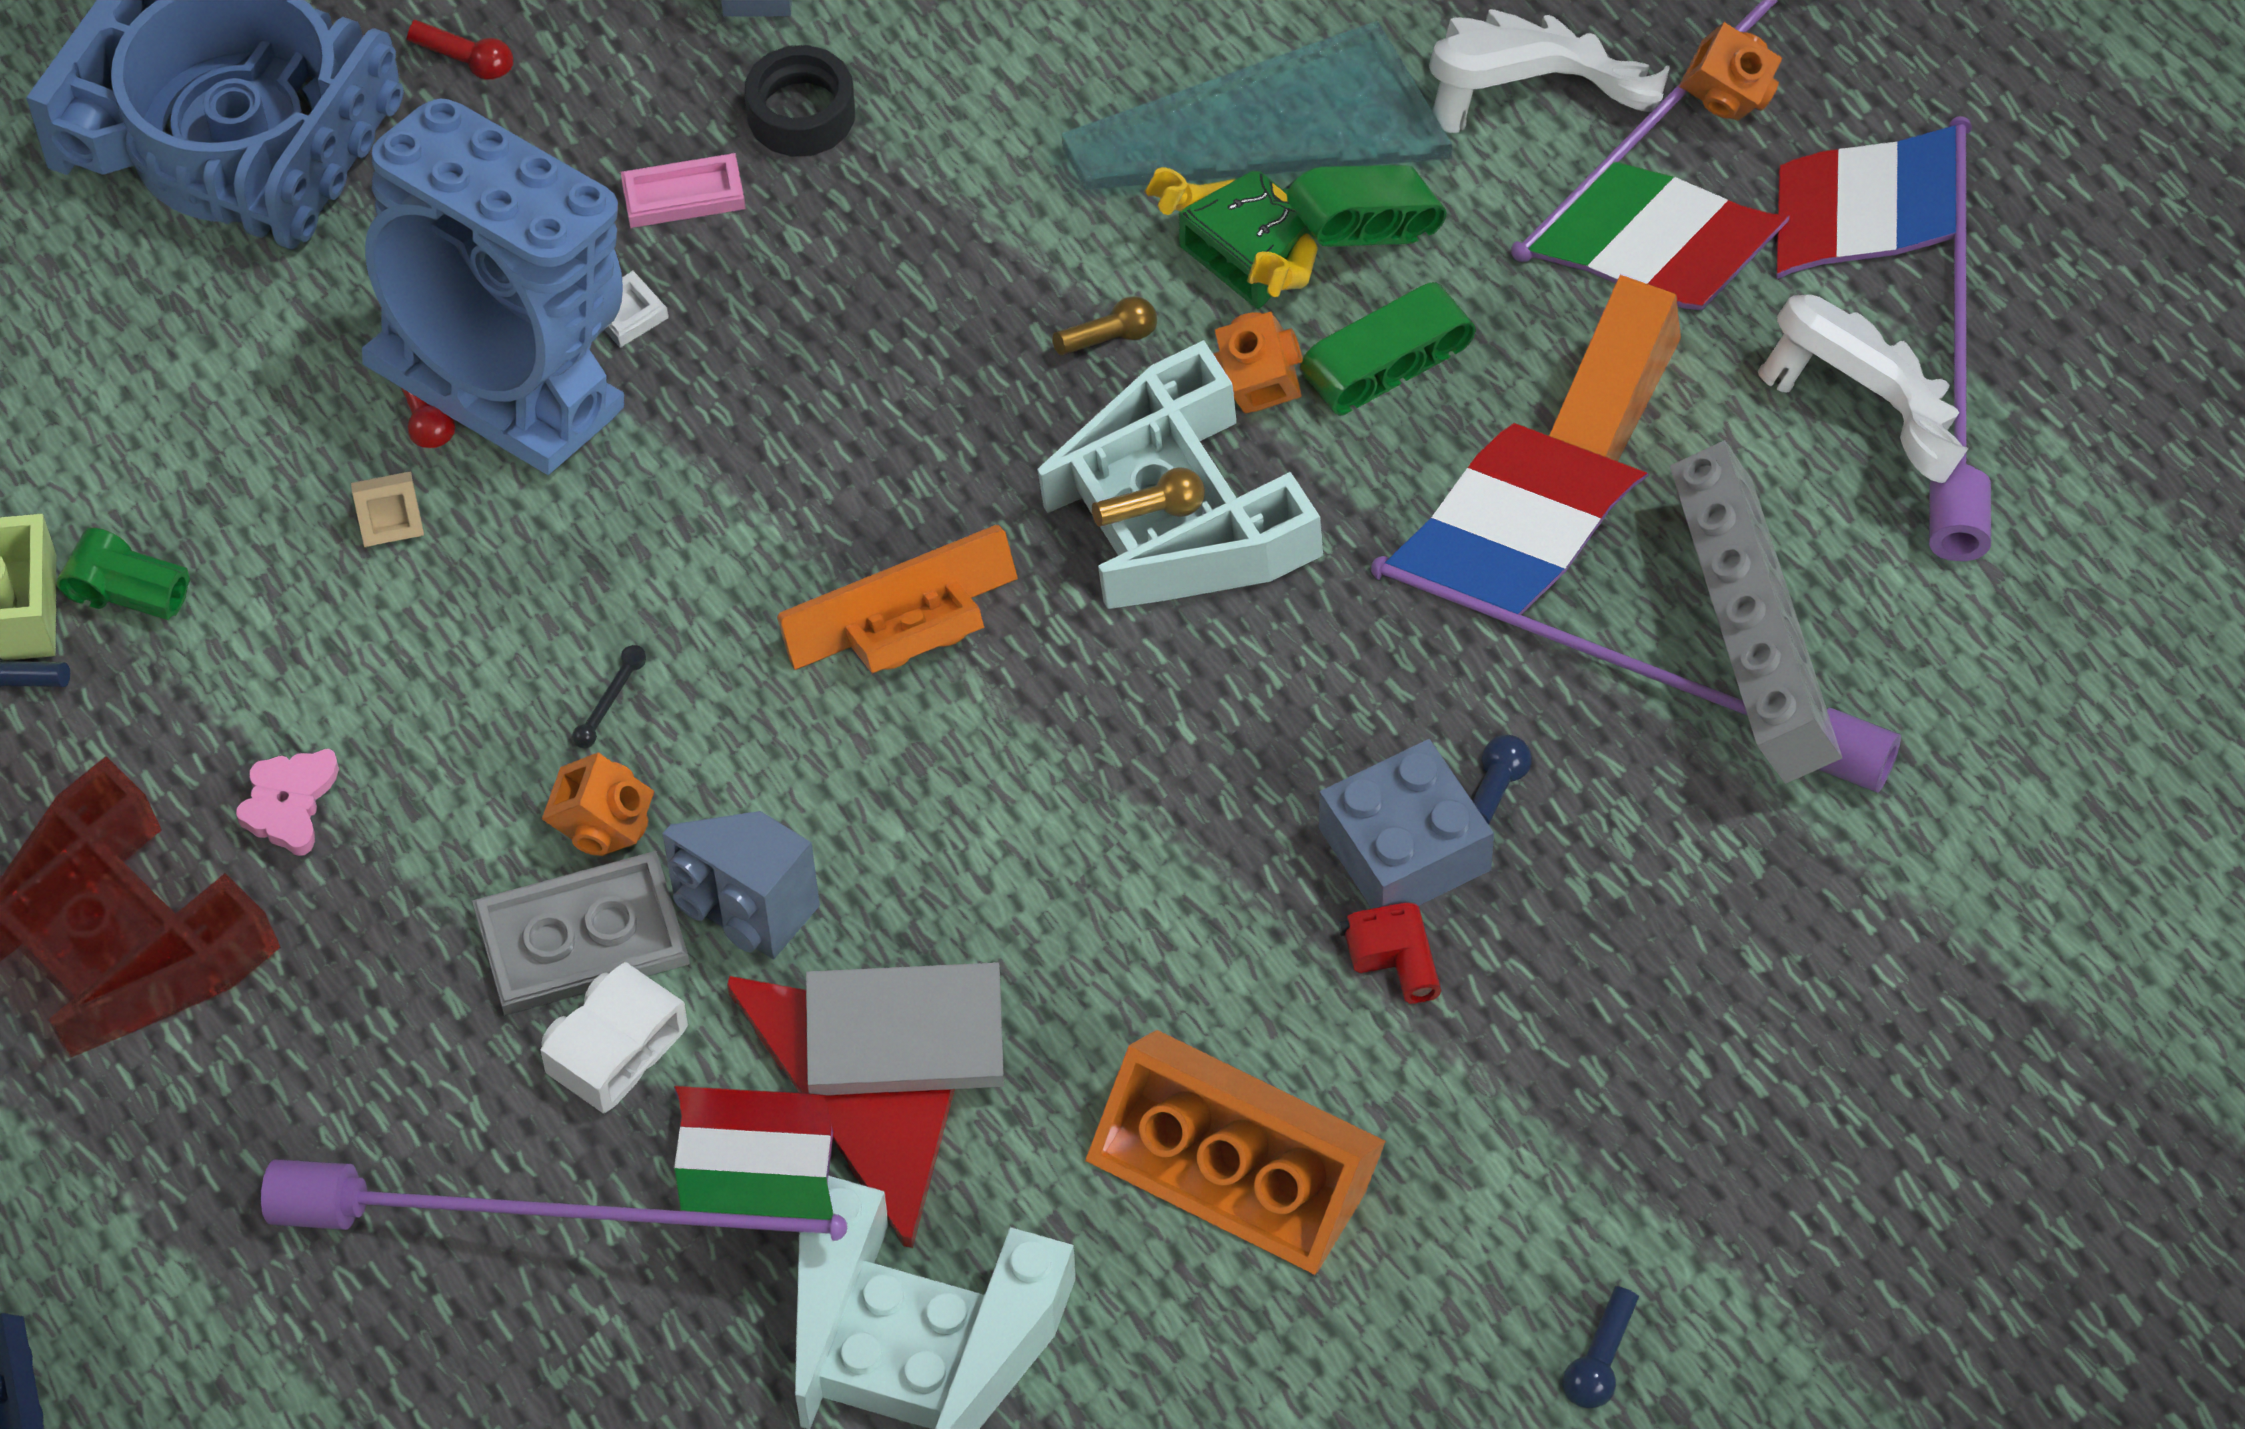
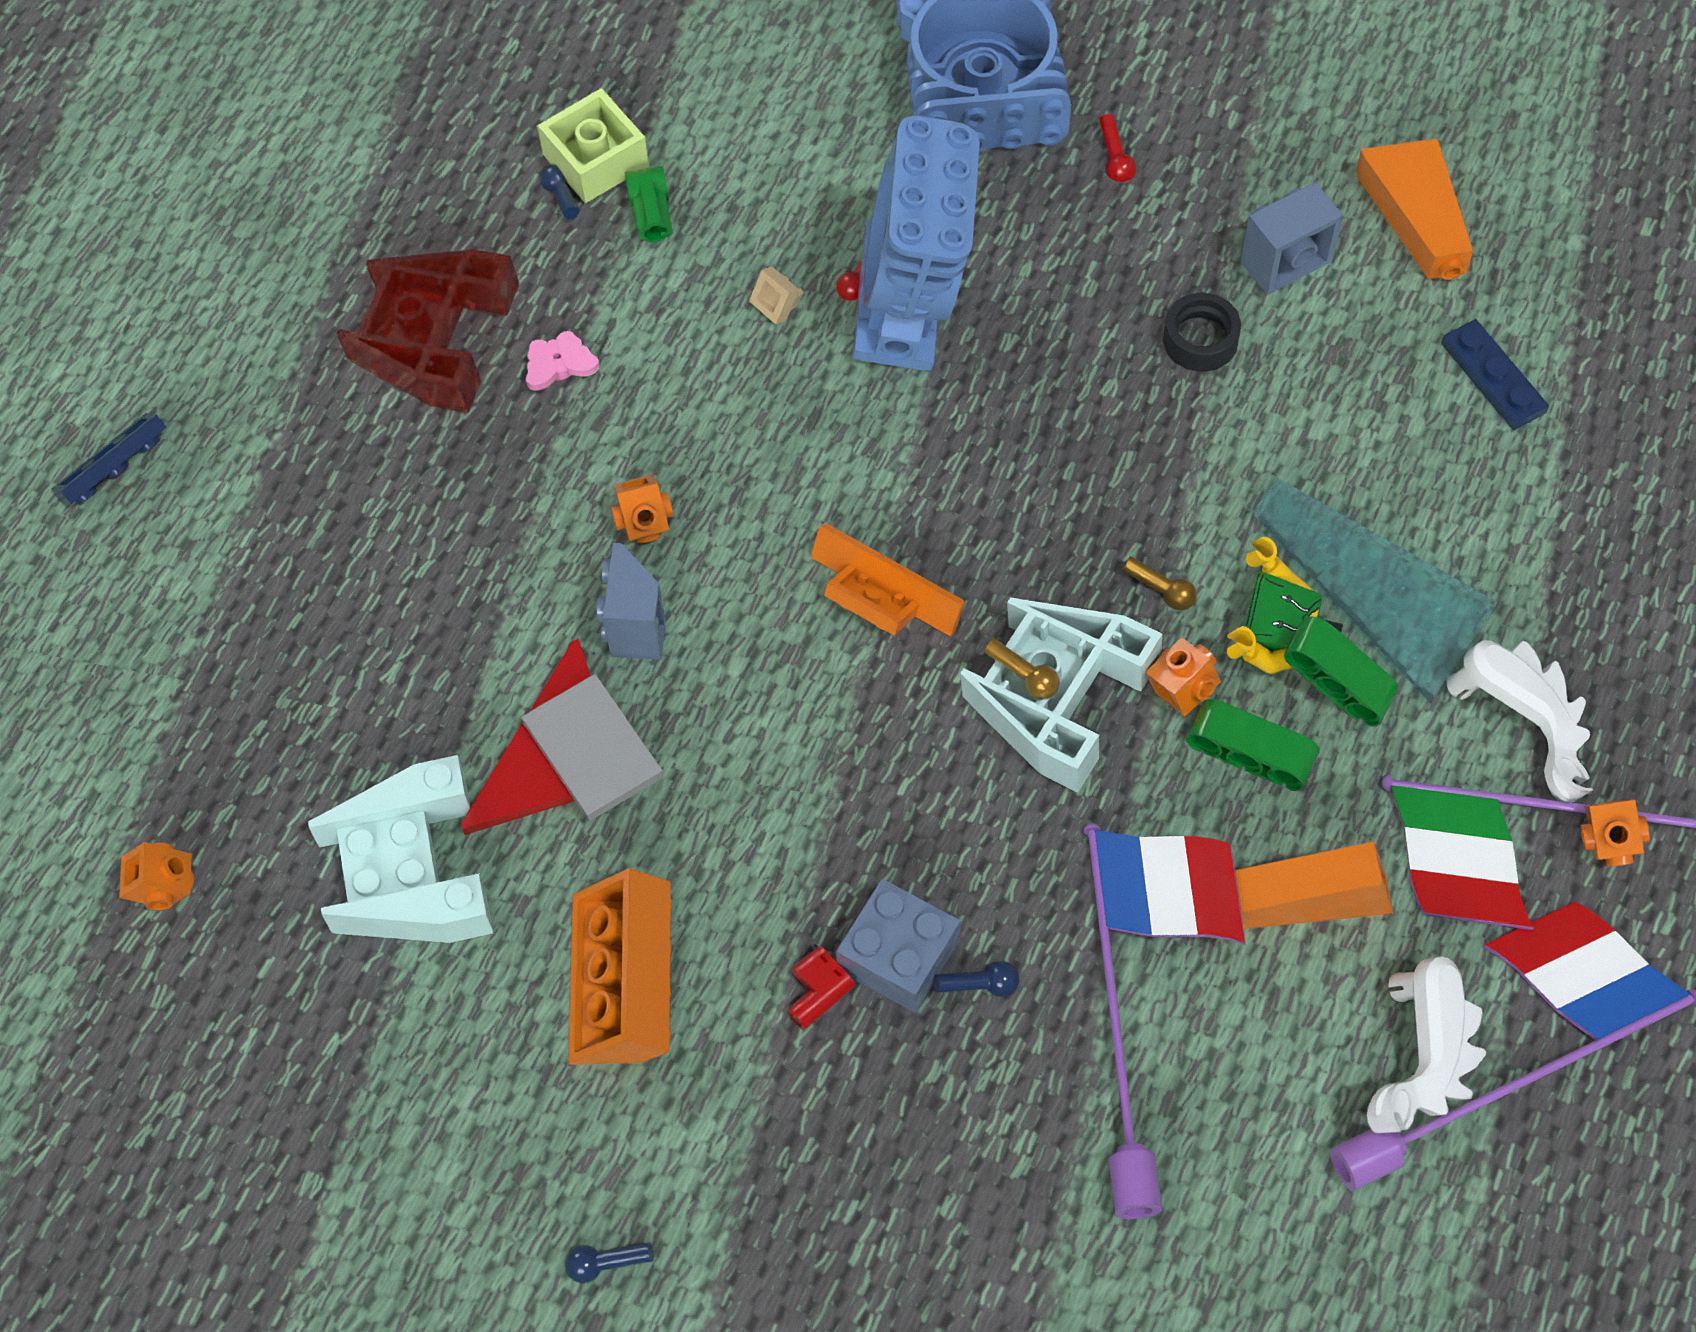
camera: 60 degrees right, 5 degrees up
(568, 930) = (560, 548): light grey tile -> none
(613, 1036) = (501, 603): white brick -> none
(632, 658) = (763, 472): black hinge -> none
(638, 311) = (996, 332): white tile -> none
(682, 190) = (1098, 312): bright pink tile -> none
(737, 1165) = (433, 716): flag -> none
(1755, 613) = (1186, 1065): light grey brick -> none

